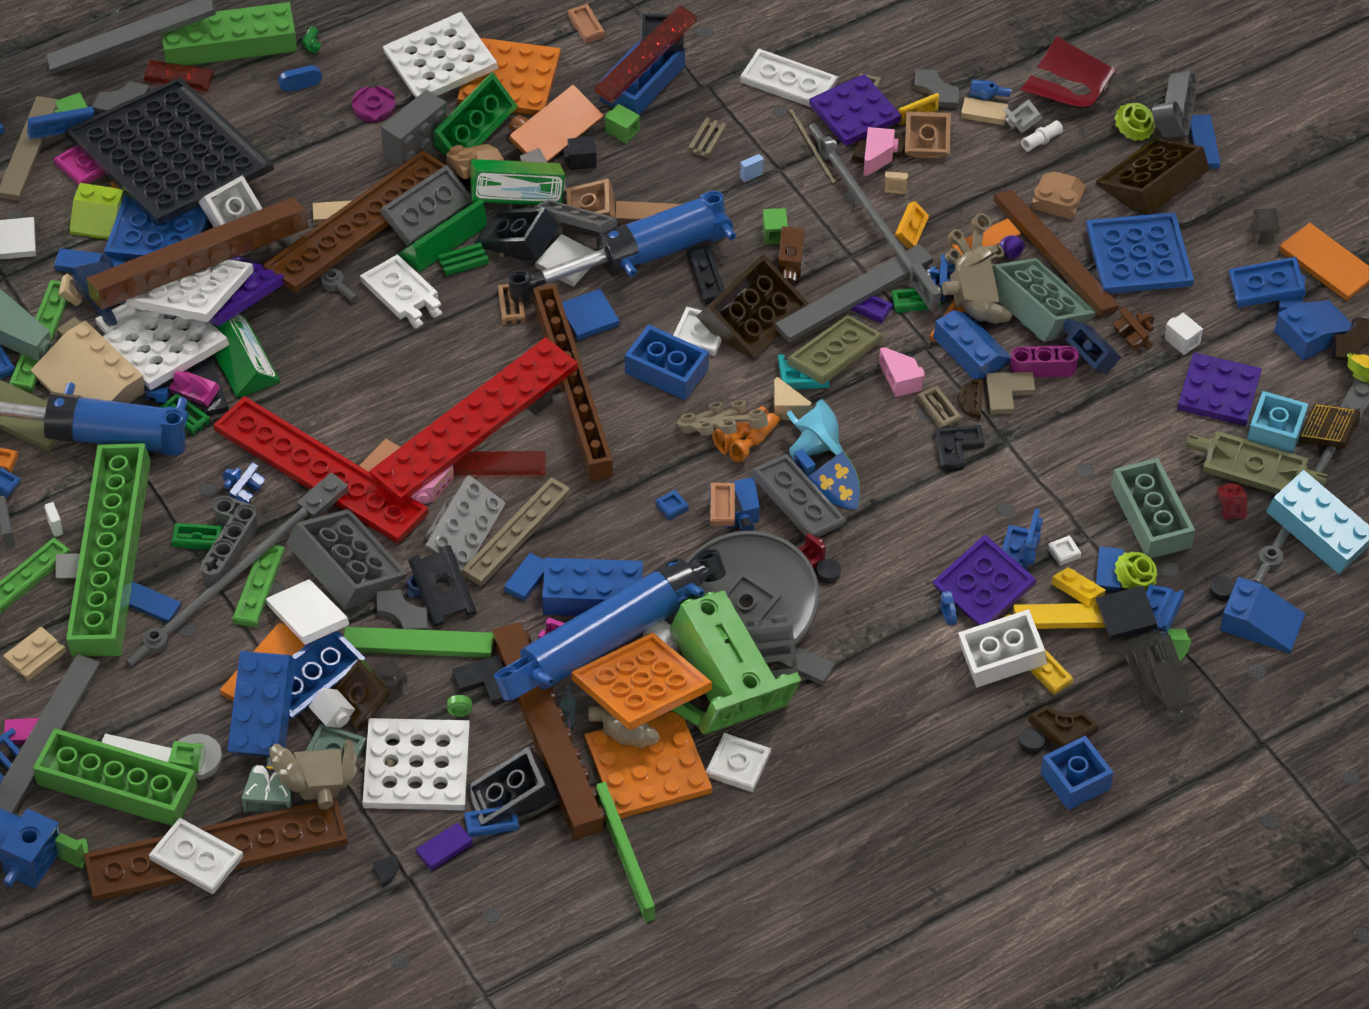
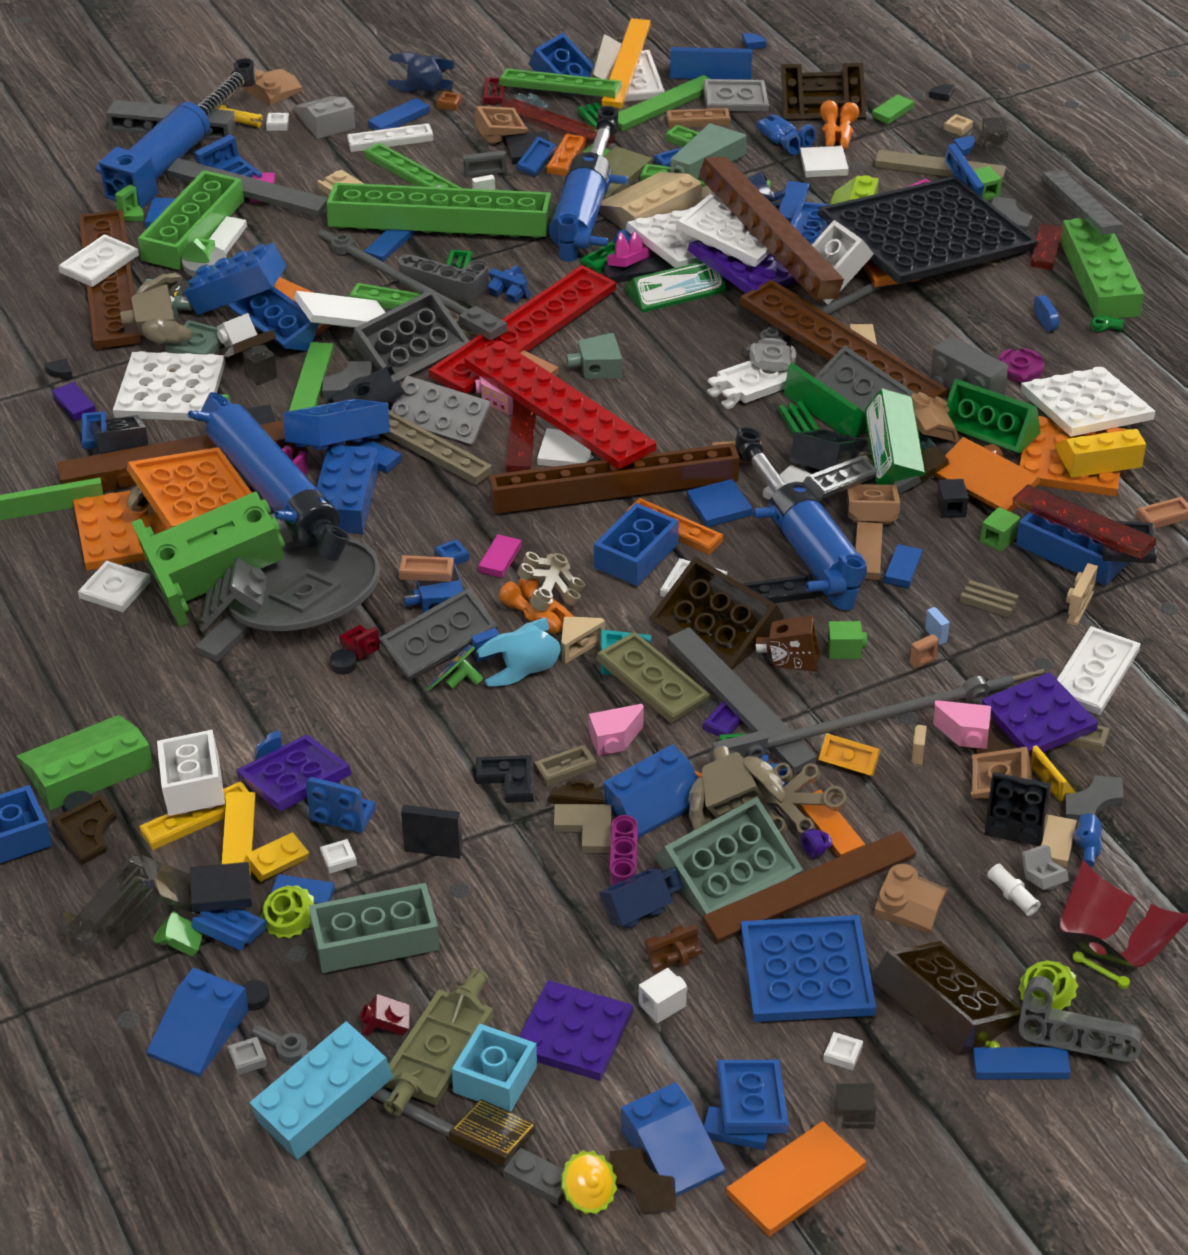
camera: 95 degrees right, 10 degrees down
(82, 822) = (157, 207): none -> blue tile
(370, 273) = (772, 354): none -> light grey tile
(371, 405) = (597, 357): none -> sand green torso
(516, 587) = (336, 423): none -> blue brick
(518, 433) = (560, 450): none -> white tile
(523, 47) = (1102, 452): none -> yellow slope
(613, 355) = (690, 532): none -> orange tile
(668, 190) = (903, 566): none -> blue tile
(674, 468) = (499, 556): none -> dark pink tile
(709, 74) = (1082, 593): none -> tan plate
(784, 177) = (924, 651): none -> nougat tile
(974, 120) = (1017, 809): none -> black slope
(978, 742) = (87, 760): none -> bright green slope
(1047, 476) = (432, 831): none -> black tile
(1116, 86) = (1122, 981): none -> lime hinge
(1210, 236) = (843, 1051): none -> white tile
(1282, 585) = (247, 1056): none -> light grey tile

